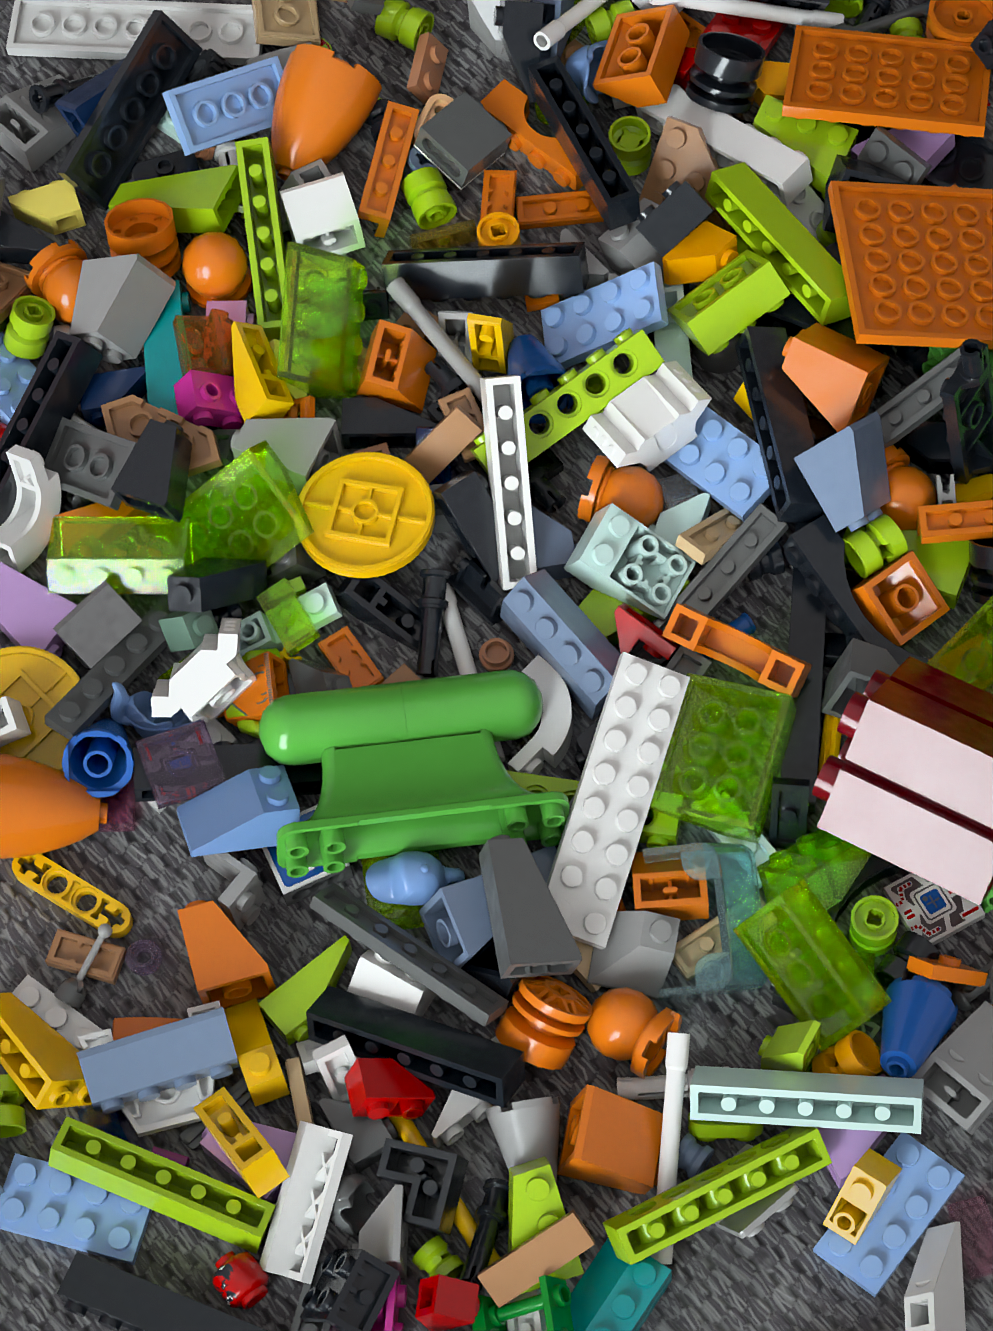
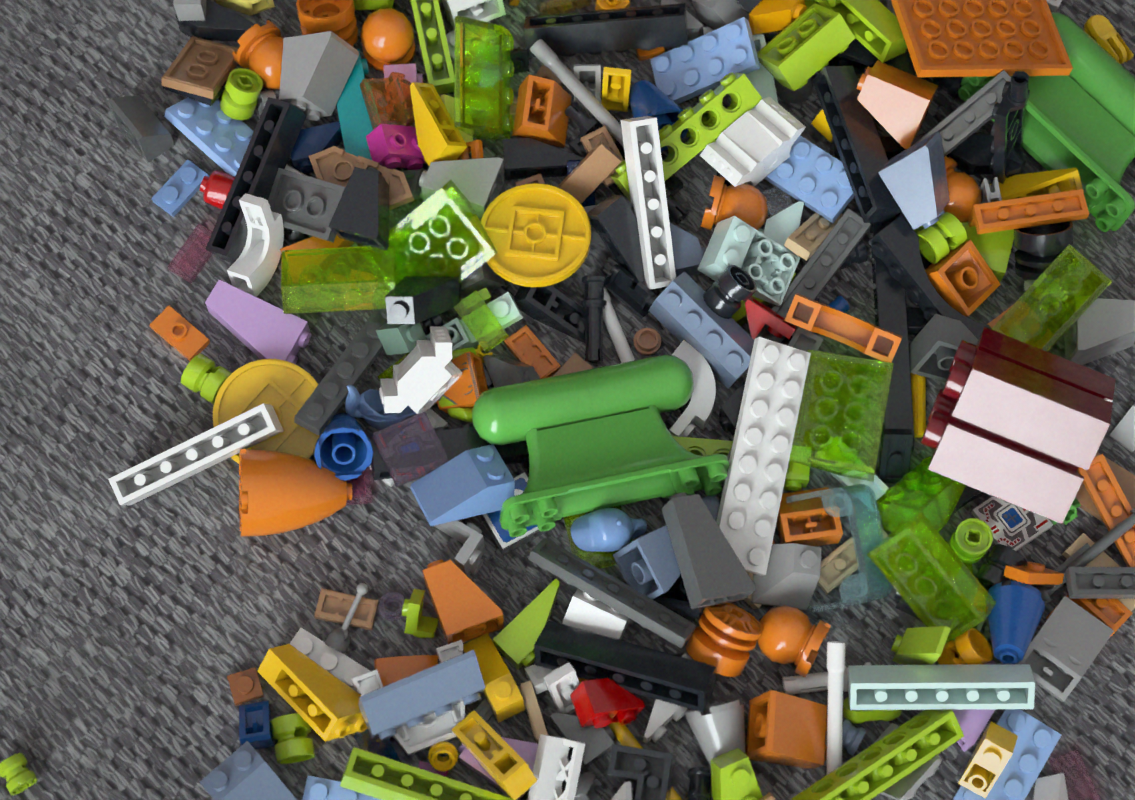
camera: 15 degrees left, 5 degrees up
(74, 891) = (331, 554): yellow beam -> none
(97, 625) = (327, 338): flat silver slope -> none
(166, 974) = (416, 624): none -> lime bracket
(174, 1147) = (443, 763): none -> yellow plate
(592, 599) = (726, 294): none -> black wheel

